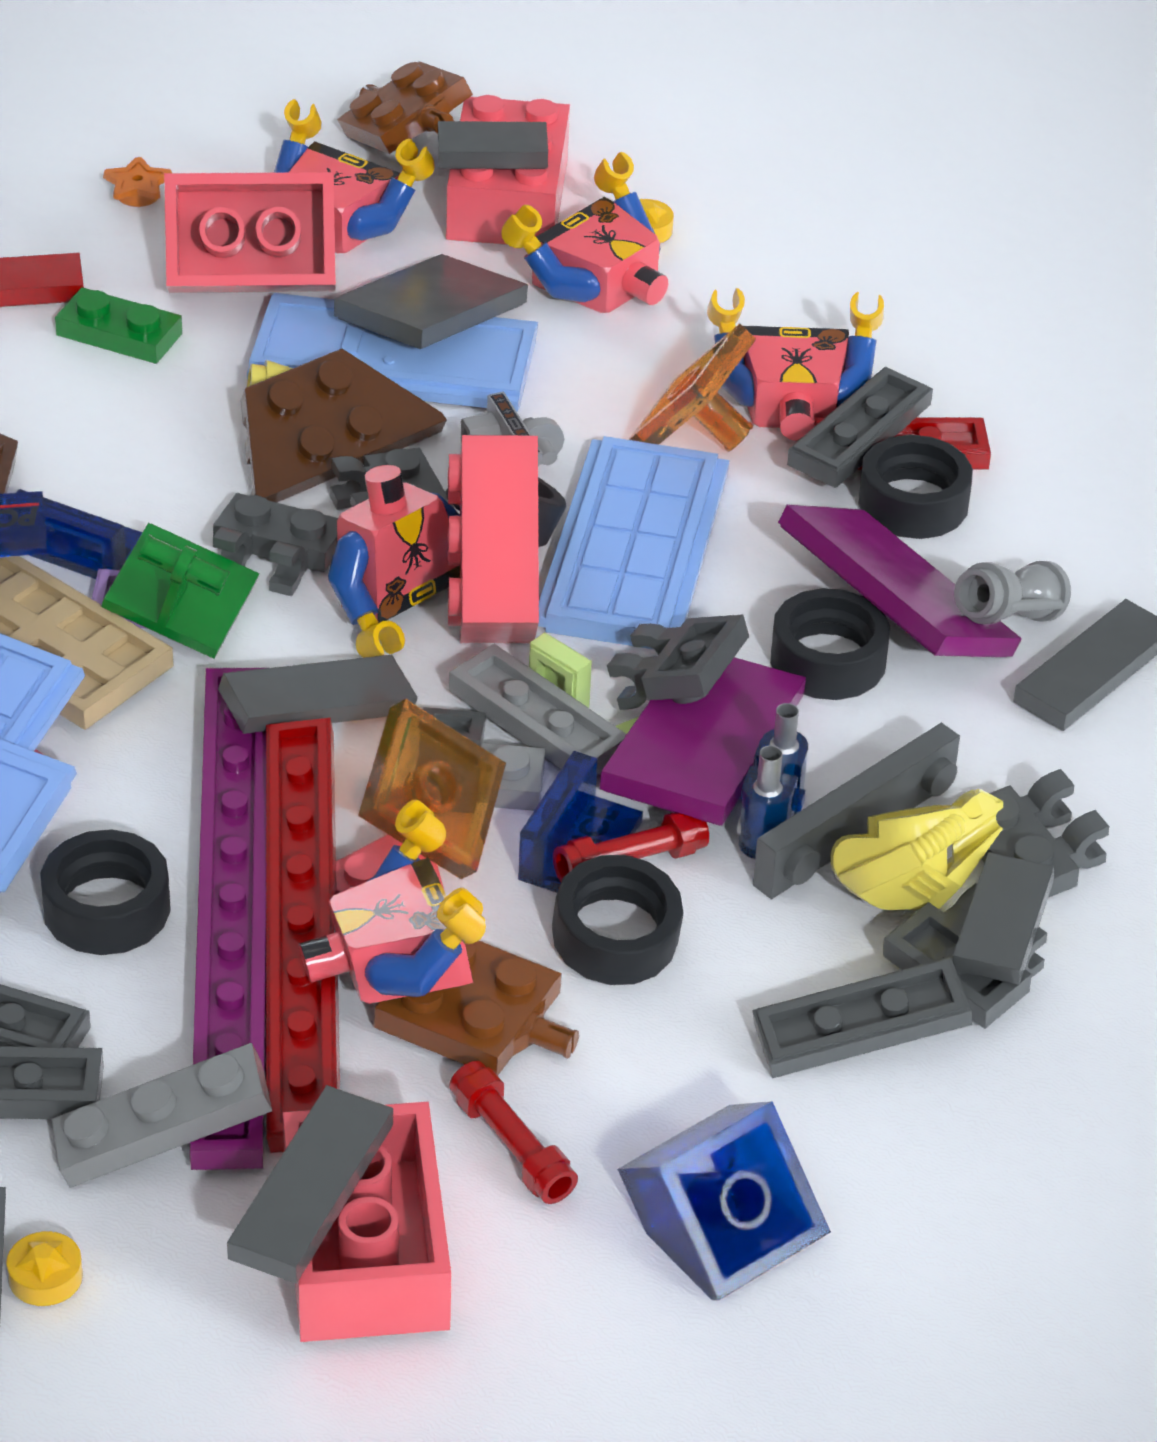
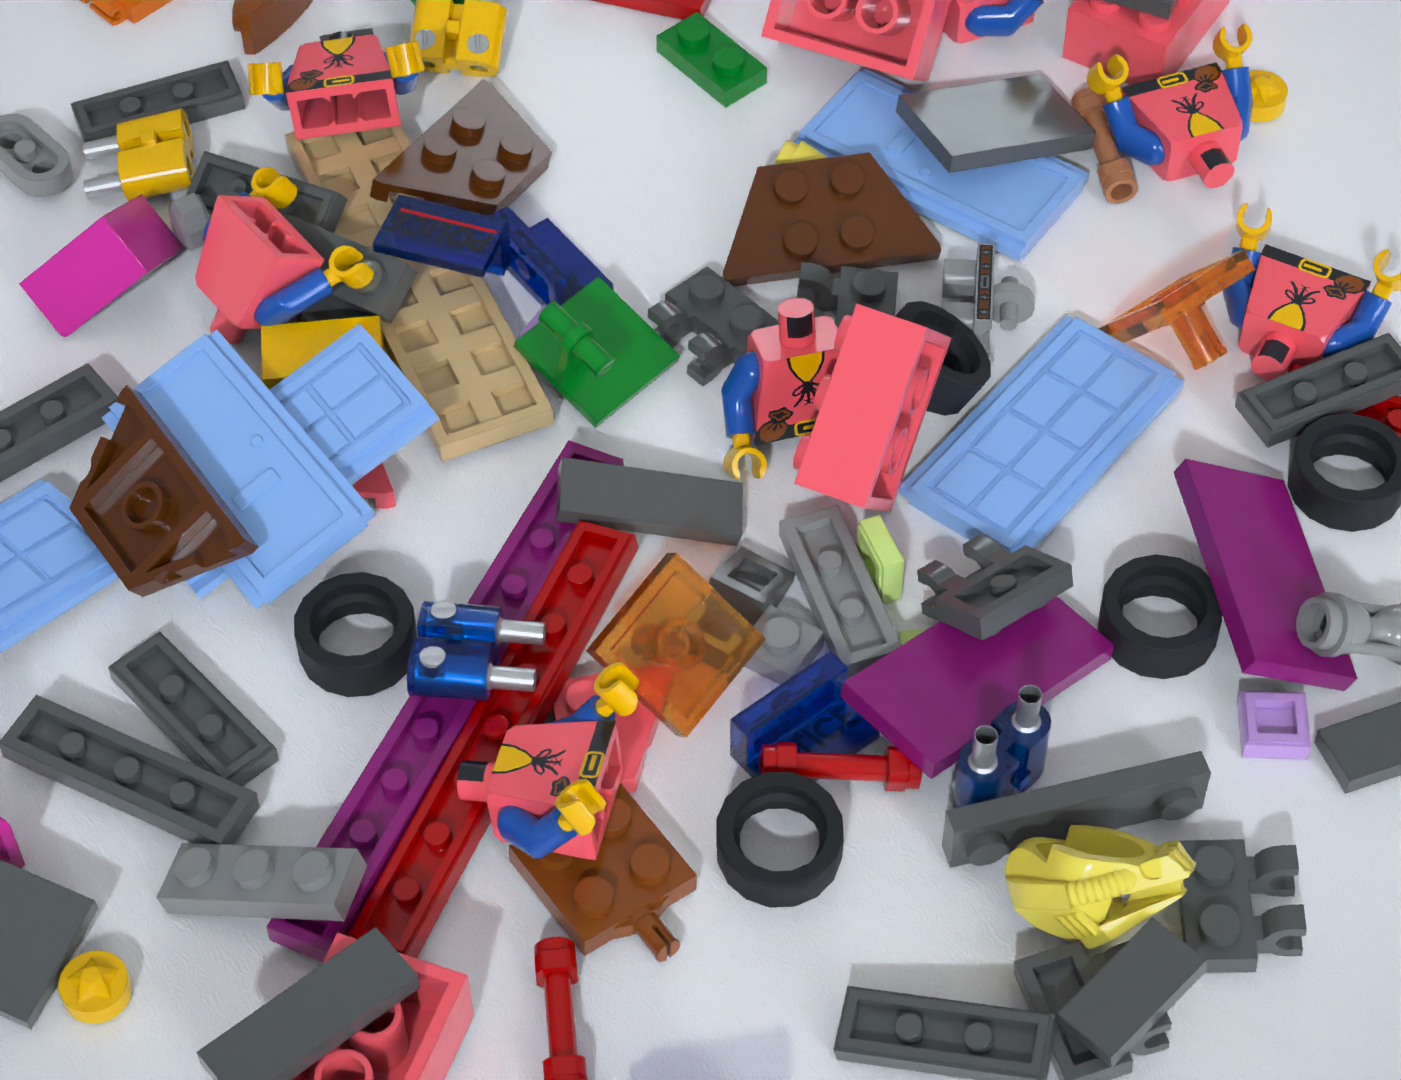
camera: 30 degrees right, 10 degrees up
(233, 858) = (459, 652): none -> clear blue piece
(563, 317) = (1114, 173): none -> nougat bar
(974, 697) = (1273, 725): none -> lavender tile

